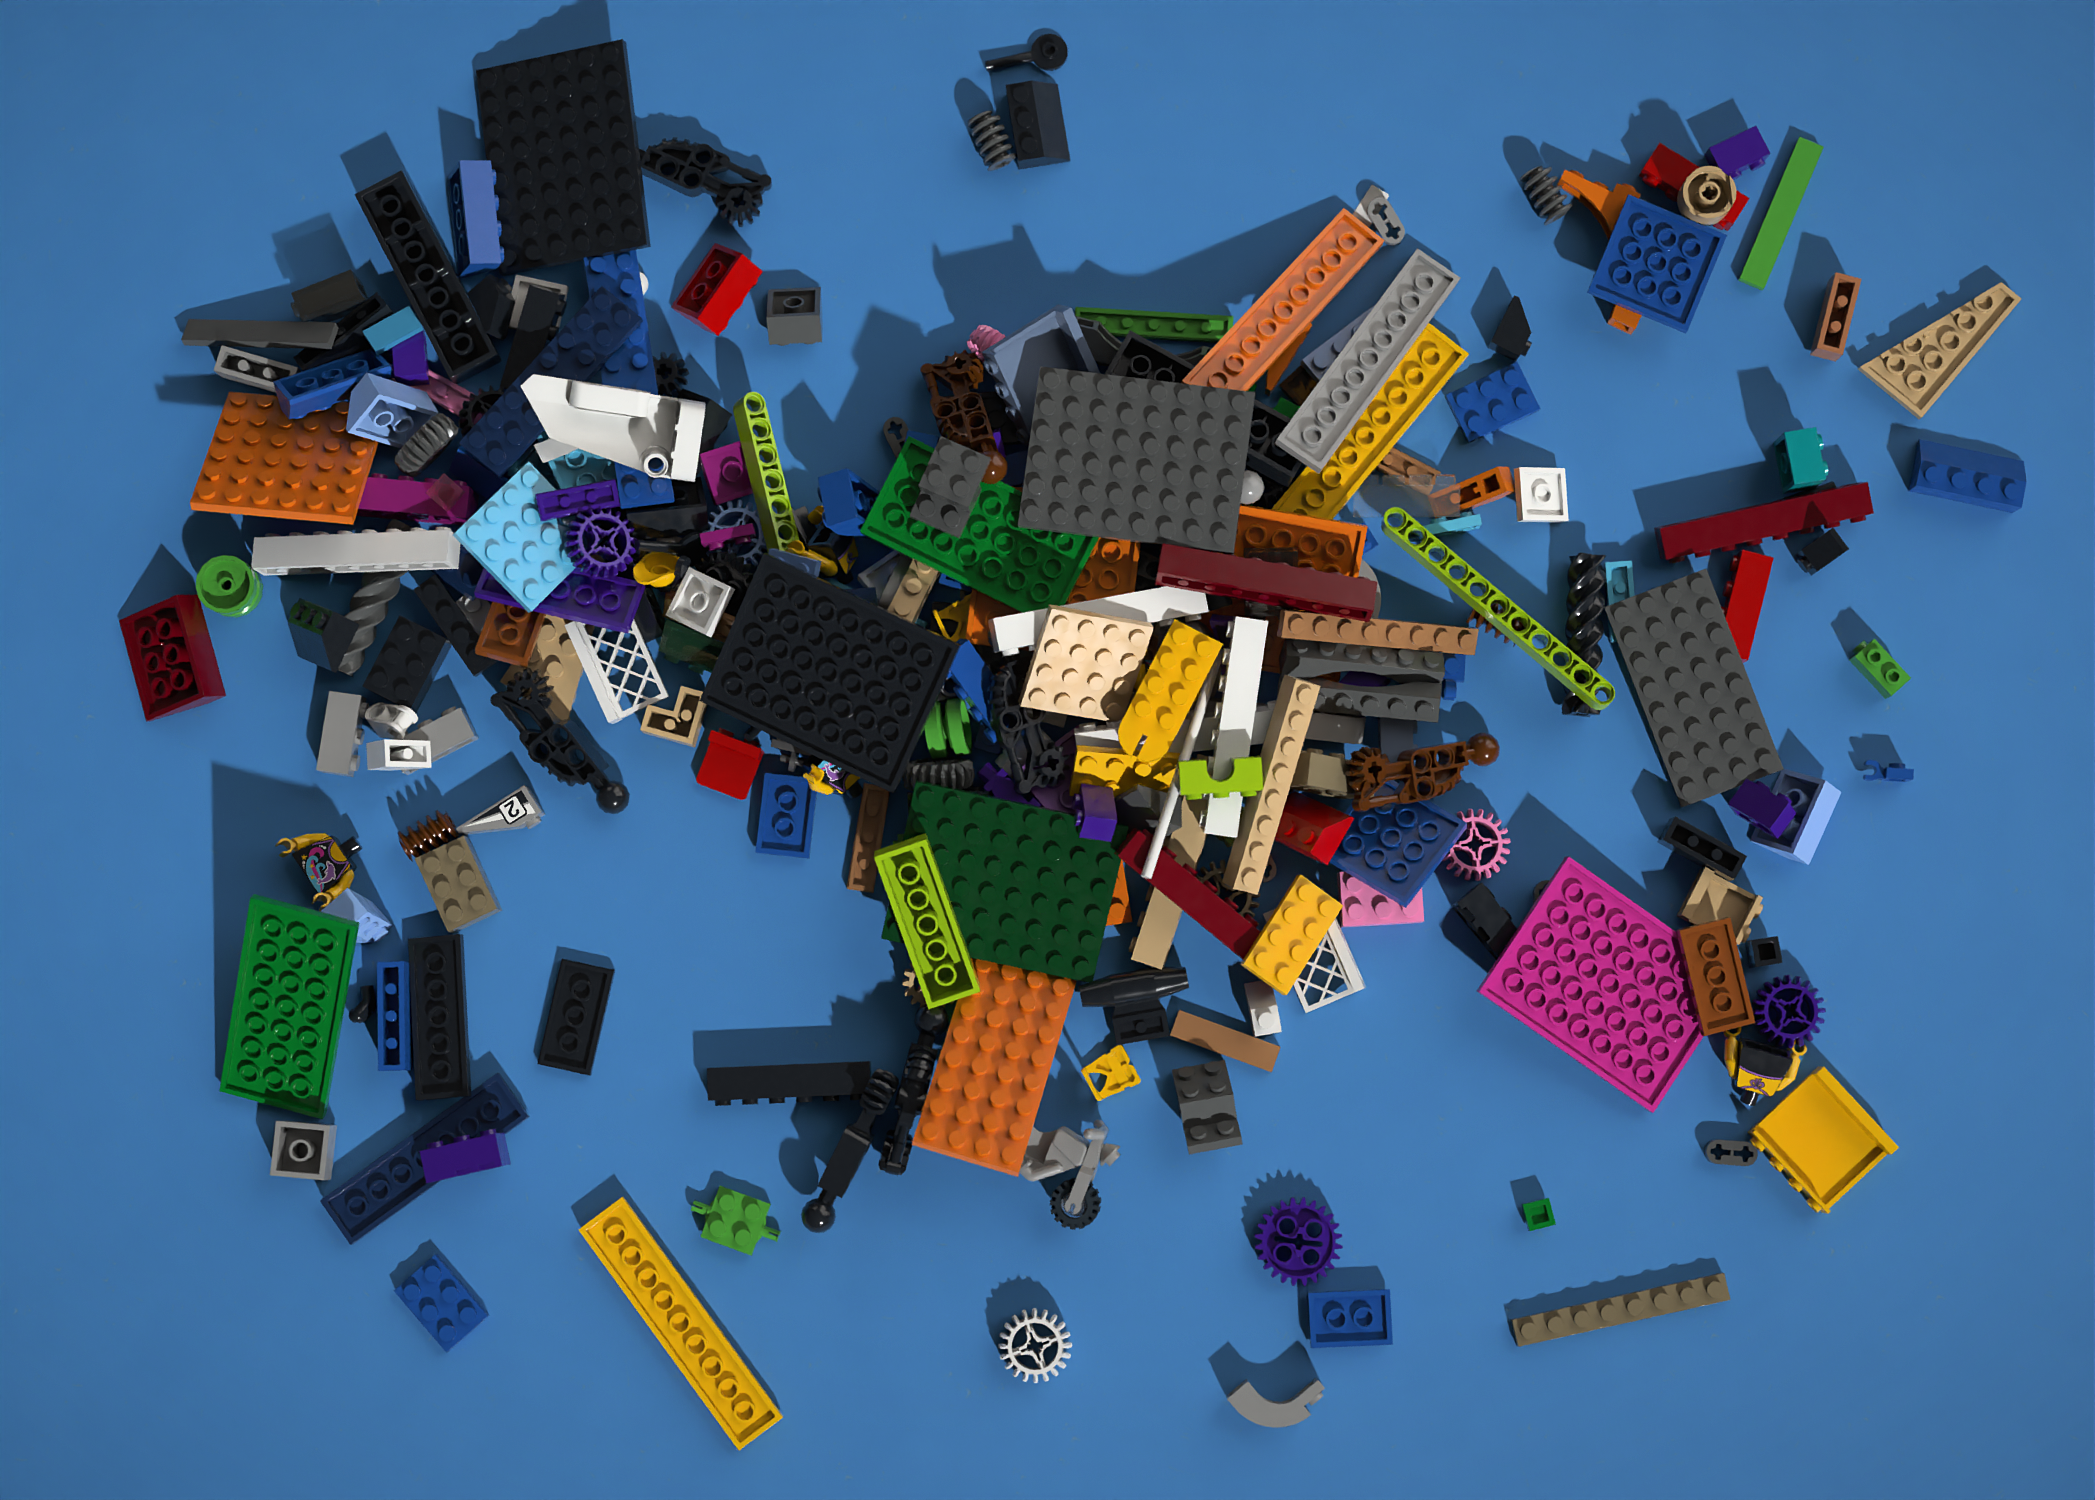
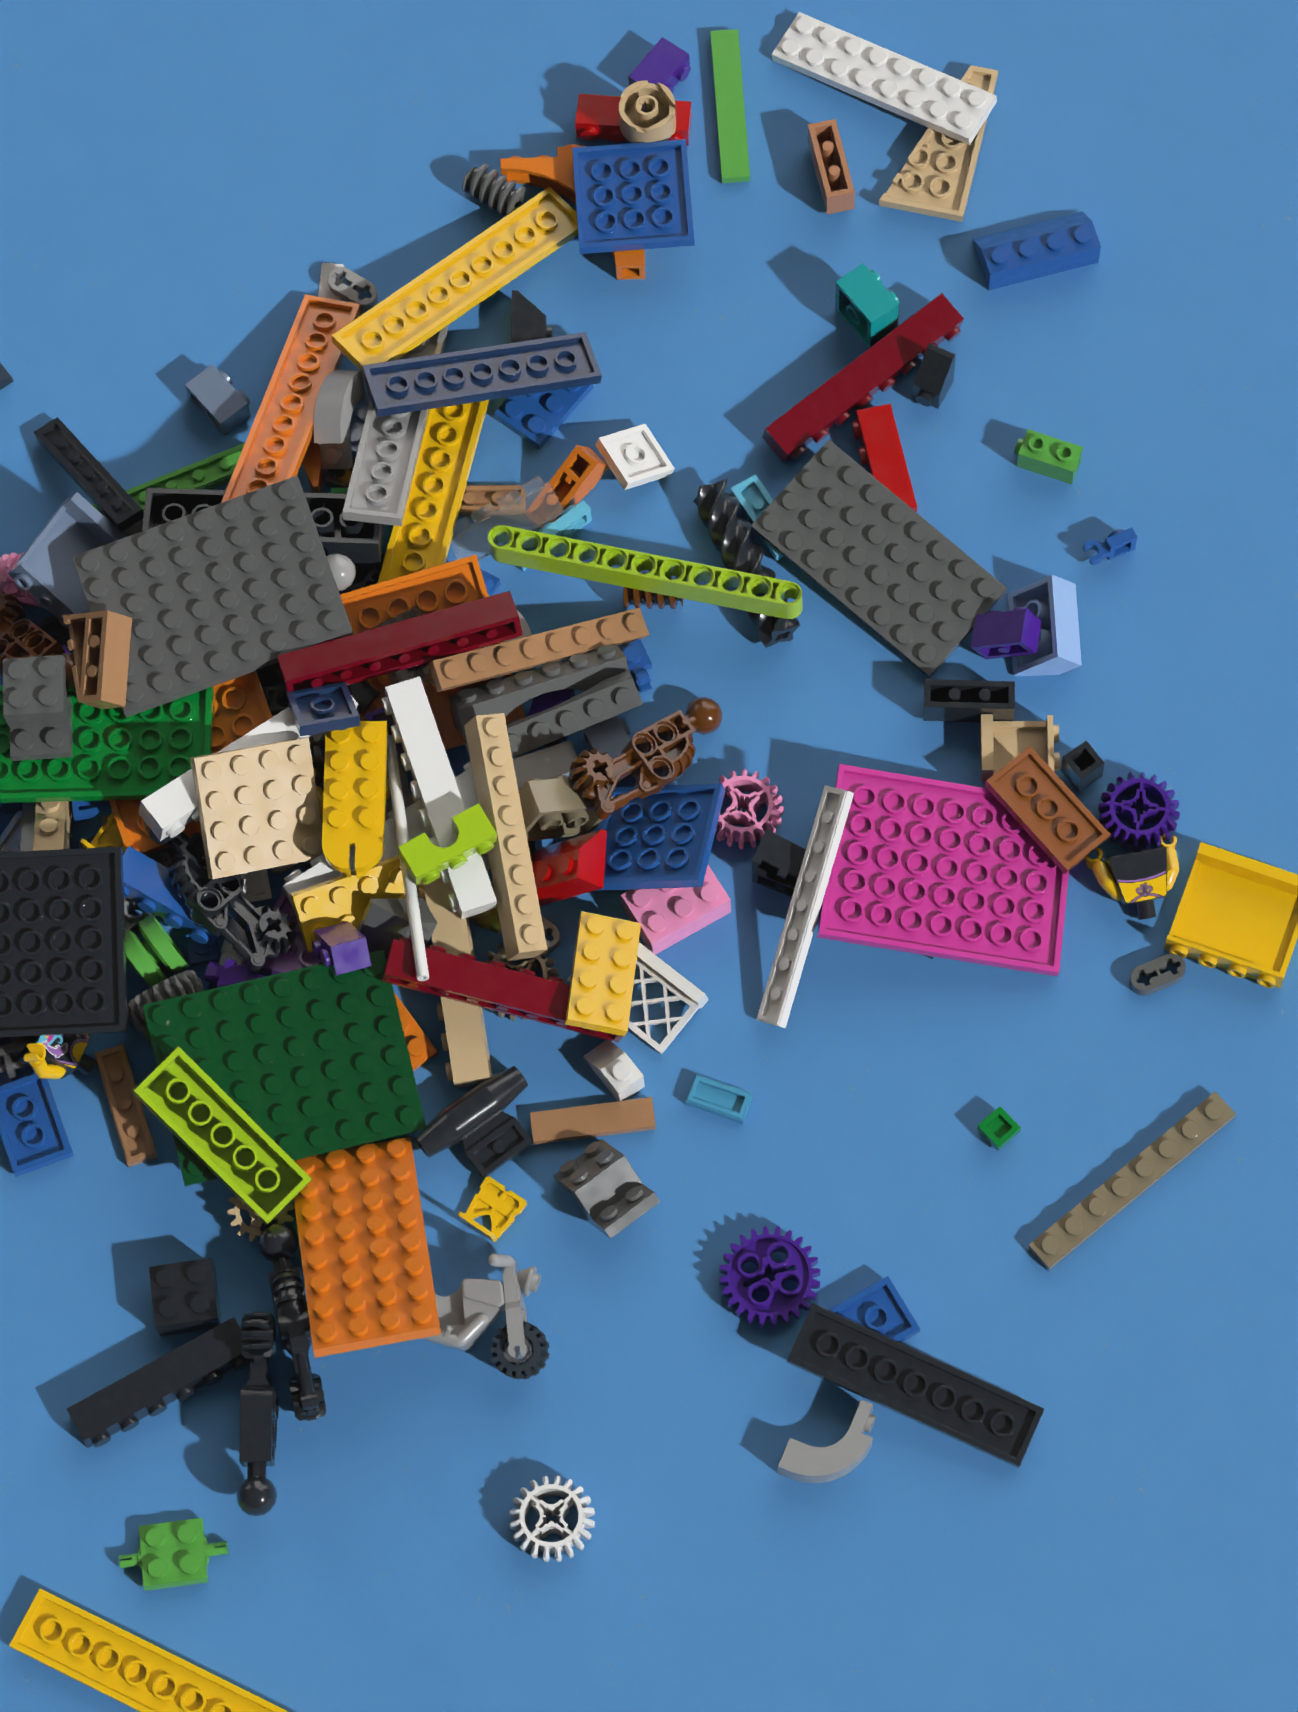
camera: 25 degrees left, 15 degrees down
(840, 1022) = (185, 1297): none -> black brick
(1019, 474) = (100, 656): none -> medium nougat wedge
(1090, 286) = (89, 474): none -> black plate
(1176, 609) = (323, 709): none -> dark blue plate
(1227, 267) = (218, 399): none -> sand blue brick
(1314, 336) = (333, 414): none -> light grey arch
(1332, 1074) = (719, 1099): none -> dark azure tile
(1365, 1389) = (915, 1385): none -> black plate
(1451, 363) = (481, 374): none -> dark blue plate
(1474, 266) = (459, 281): none -> yellow plate
(1480, 960) = (805, 906): none -> white tile
(1922, 256) = (884, 78): none -> white plate

